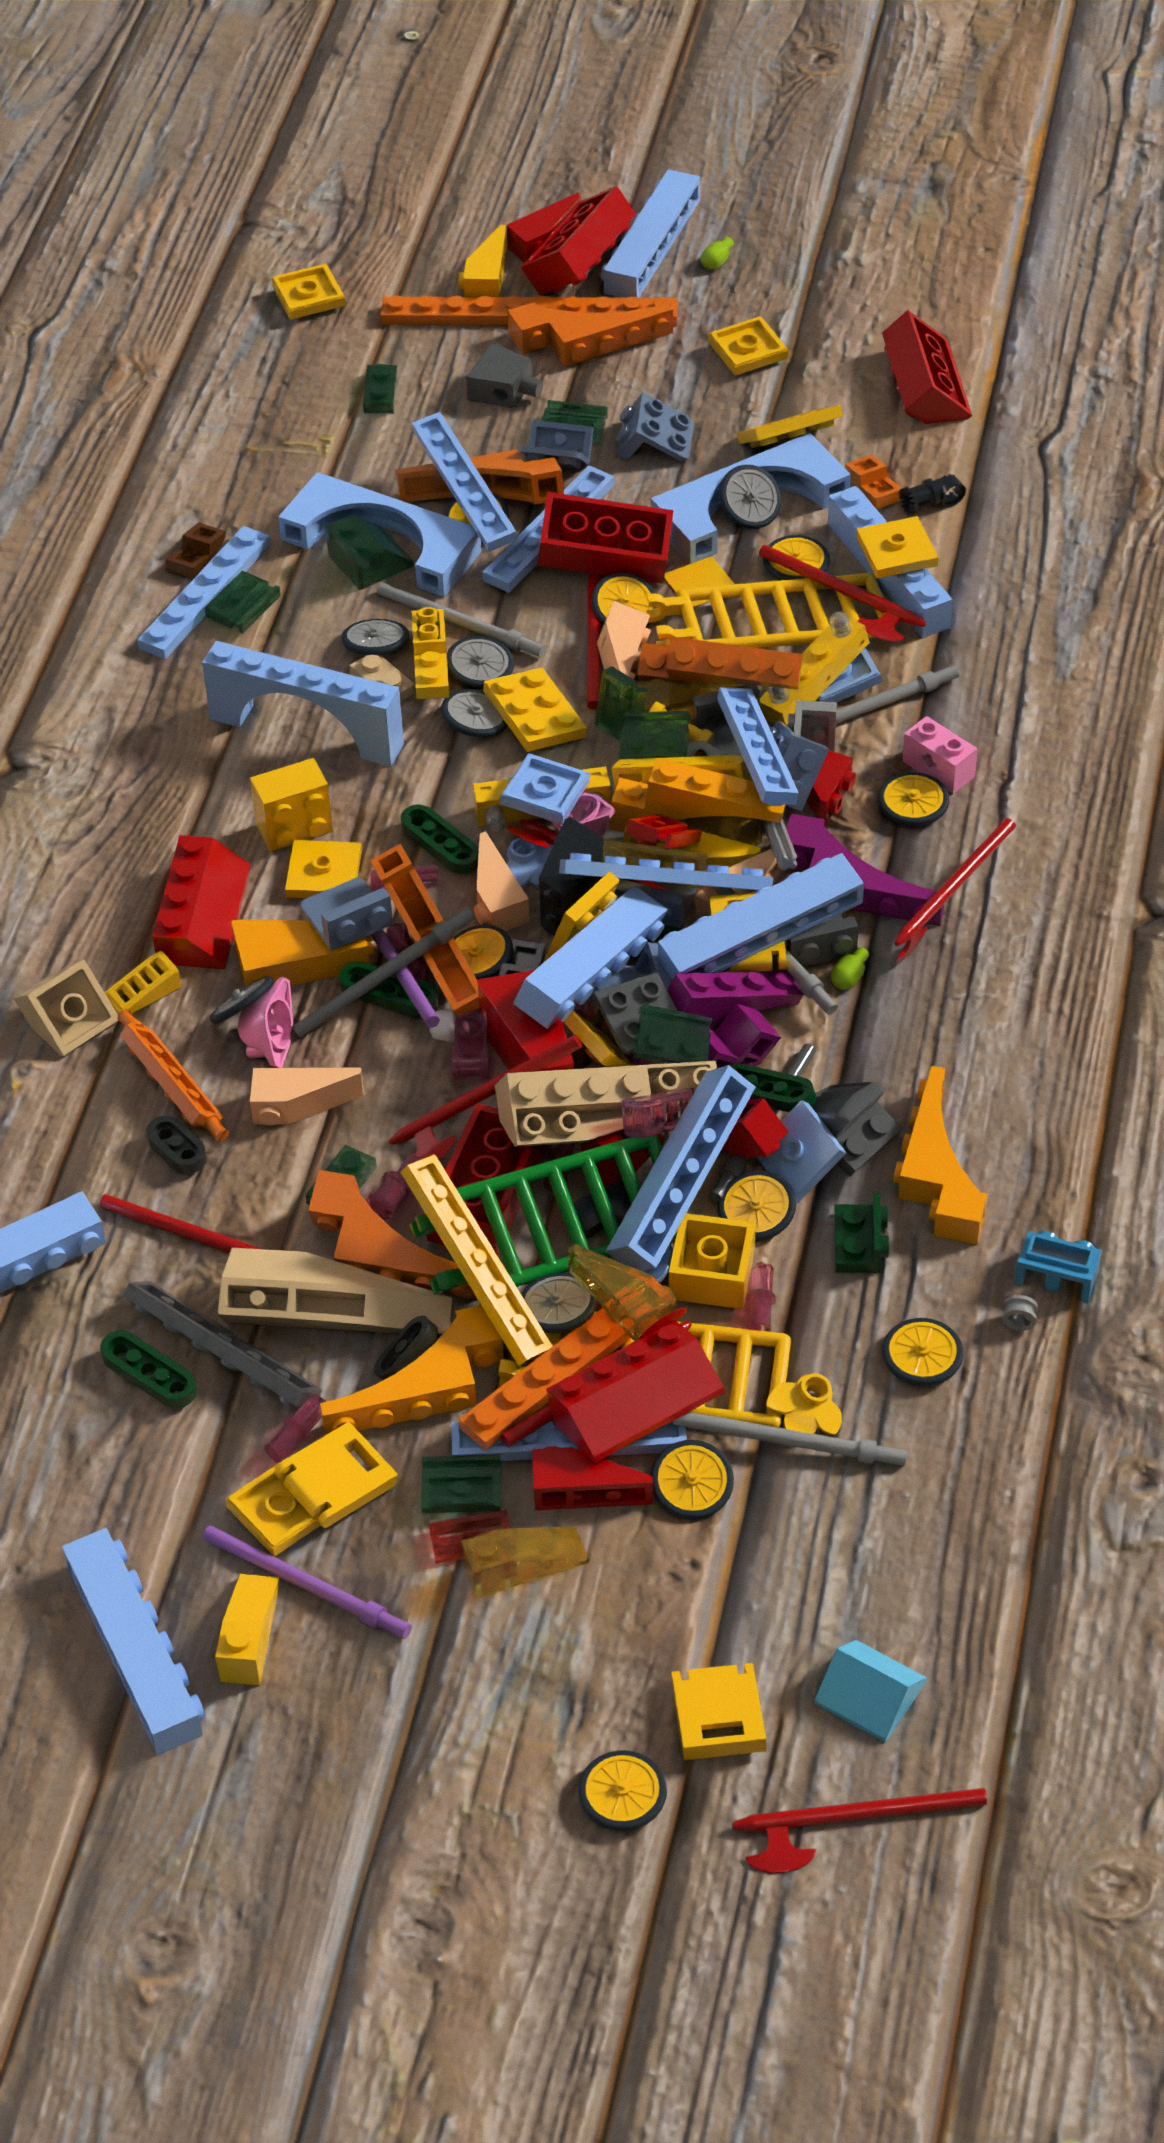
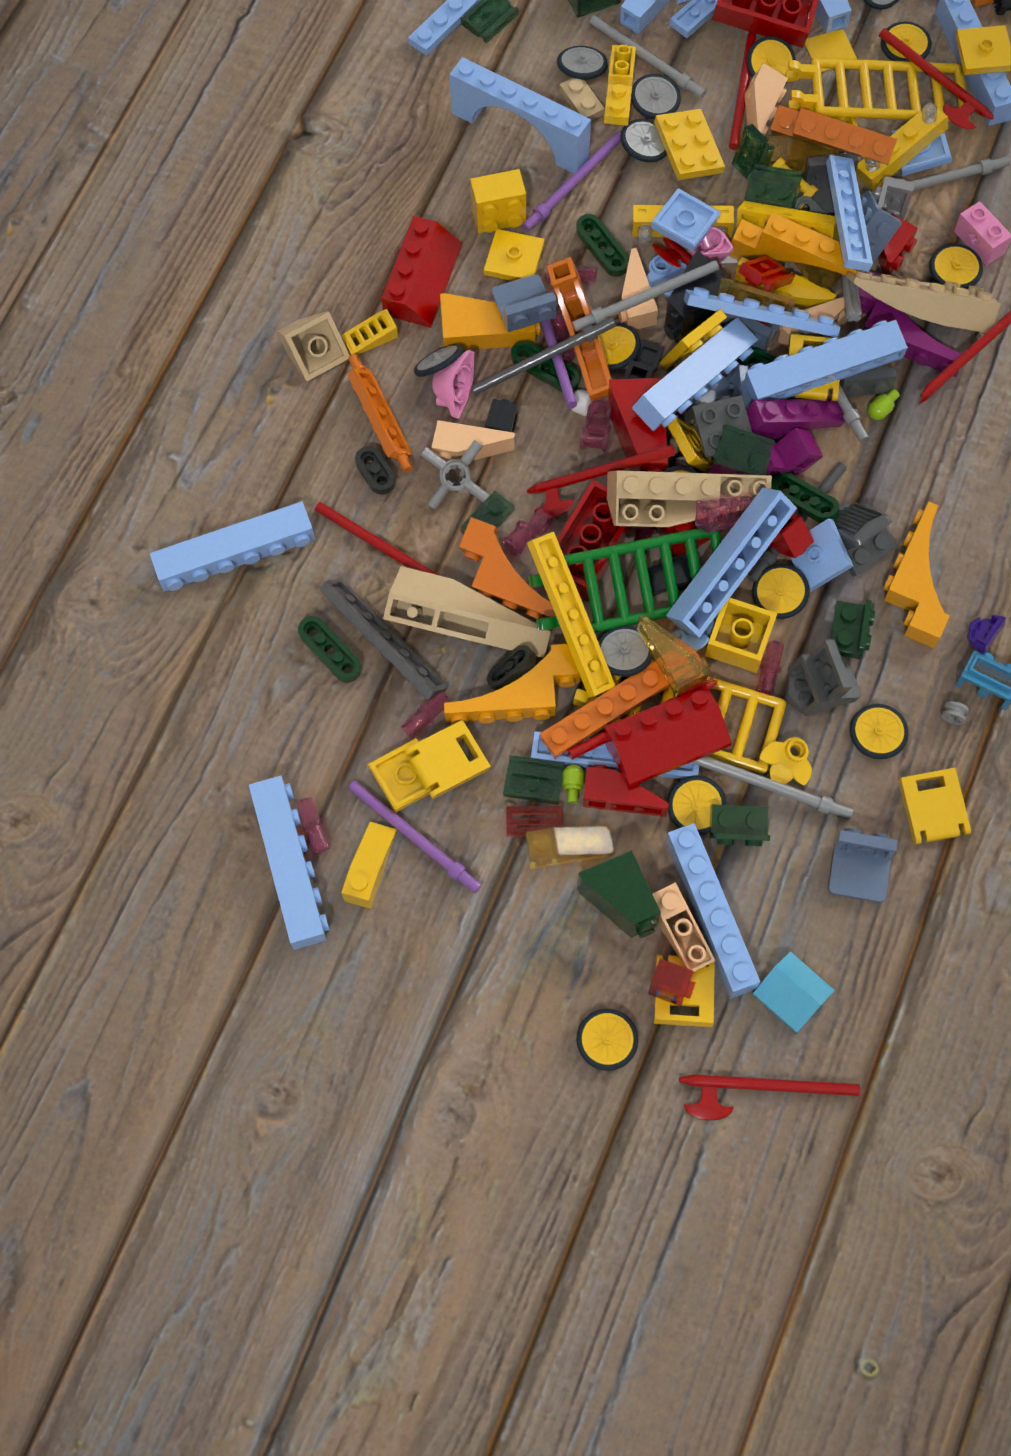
camera: 10 degrees right, 20 degrees up
(160, 1590) = (313, 825): none -> clear pink axle
(277, 1142) = (455, 485): none -> light grey bar
(340, 1050) = (502, 415): none -> black brick
(354, 809) = (542, 211): none -> medium lavender bar
(450, 907) = (599, 315): none -> light grey bar
(516, 1479) = (573, 782): none -> lime cylinder
(606, 1598) = (621, 894): none -> dark green slope
(694, 1626) = (682, 928): none -> light nougat slope
(697, 1694) = (672, 982): none -> clear red brick
(738, 1603) = (712, 911): none -> light blue brick
(754, 1491) = (739, 823): none -> dark green bracket
(831, 1299) = (821, 681): none -> dark grey piece
(908, 839) = (933, 302): none -> tan wedge
(931, 1512) = (861, 865): none -> sand blue bracket
(1016, 1432) = (934, 810): none -> yellow container
(1039, 1213) = (983, 632): none -> dark purple plate

